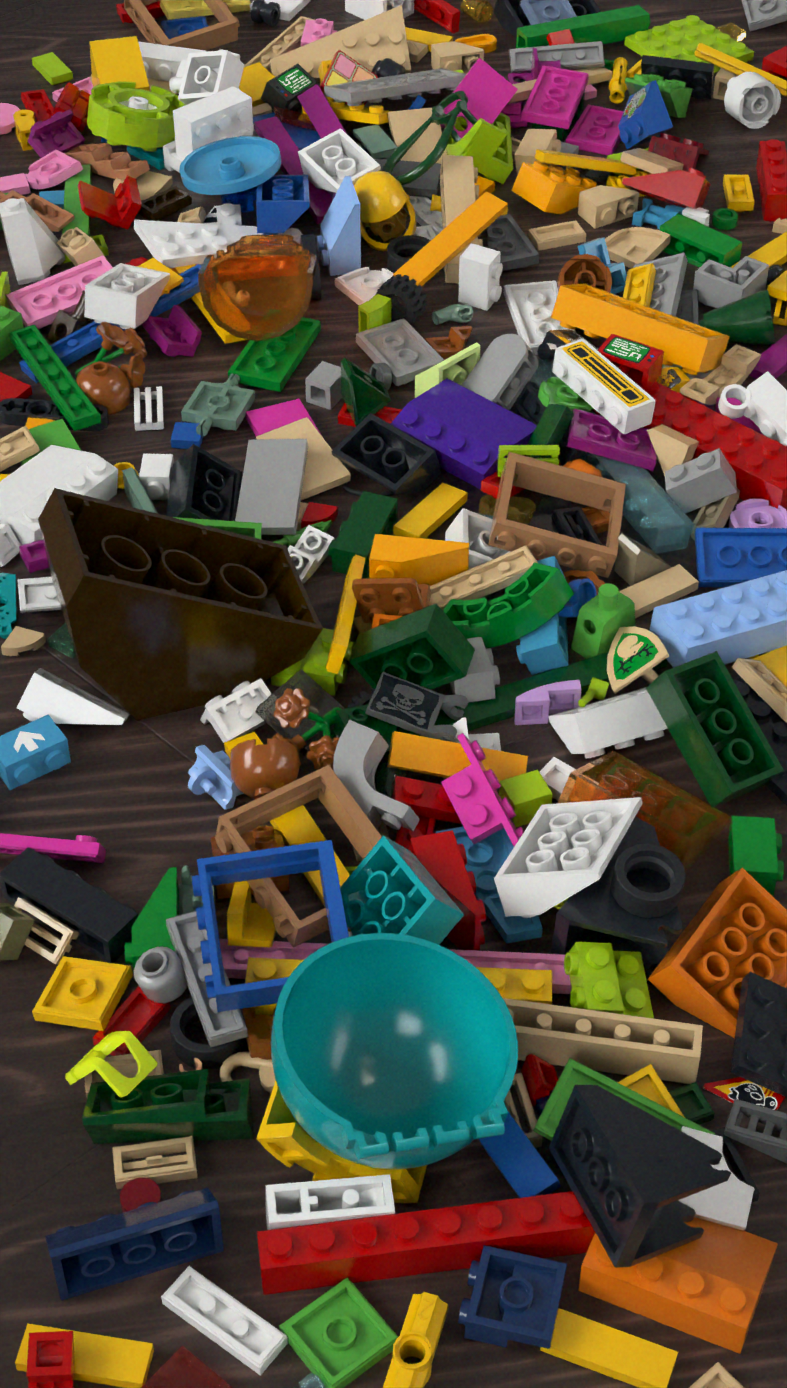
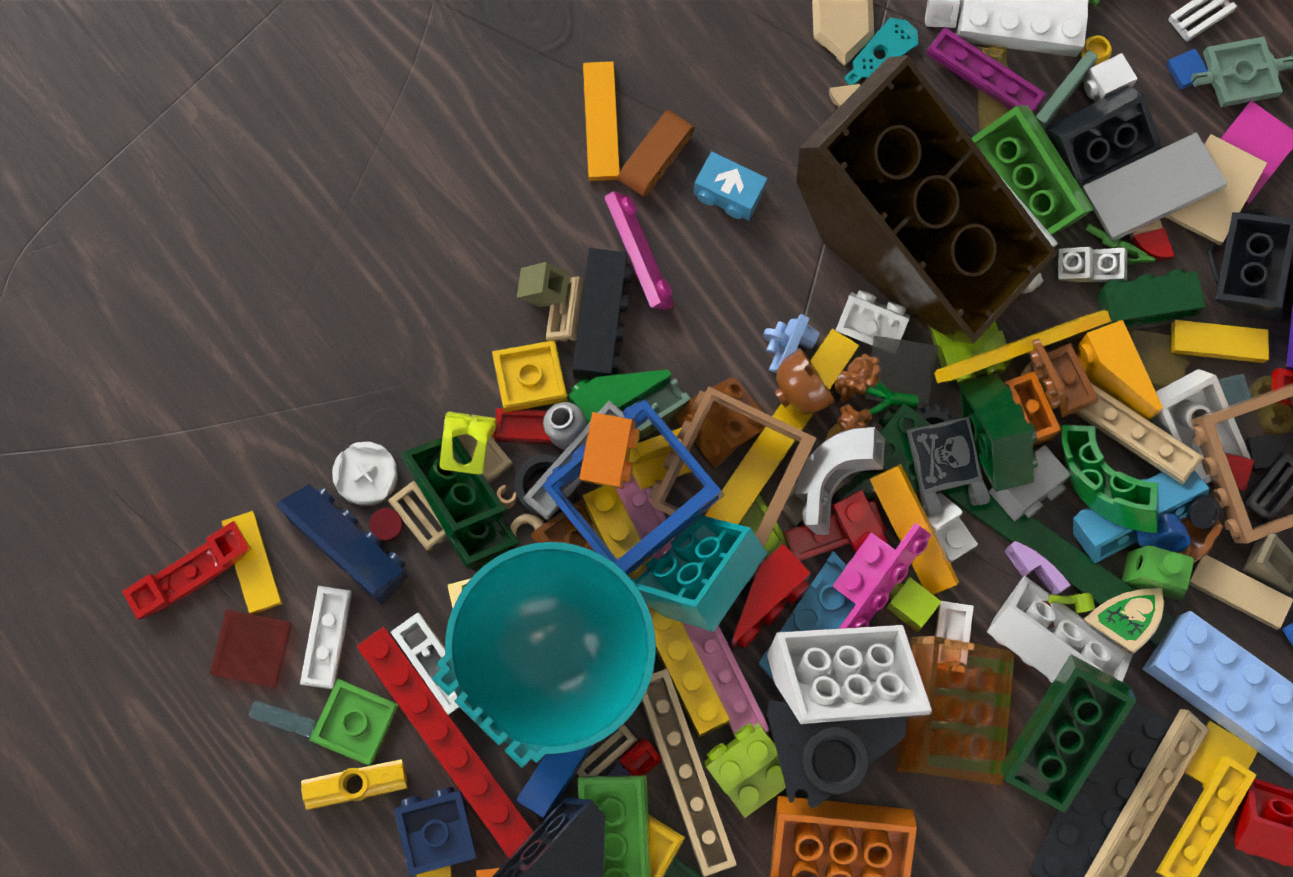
camera: 60 degrees right, 30 degrees up
(66, 703) = (780, 168): white slope -> none
(69, 1193) = (365, 474): none -> white tile
(227, 906) = (609, 450): none -> orange brick
(571, 570) = (1203, 512): none -> black piece
(755, 848) = (961, 825): green brick -> none

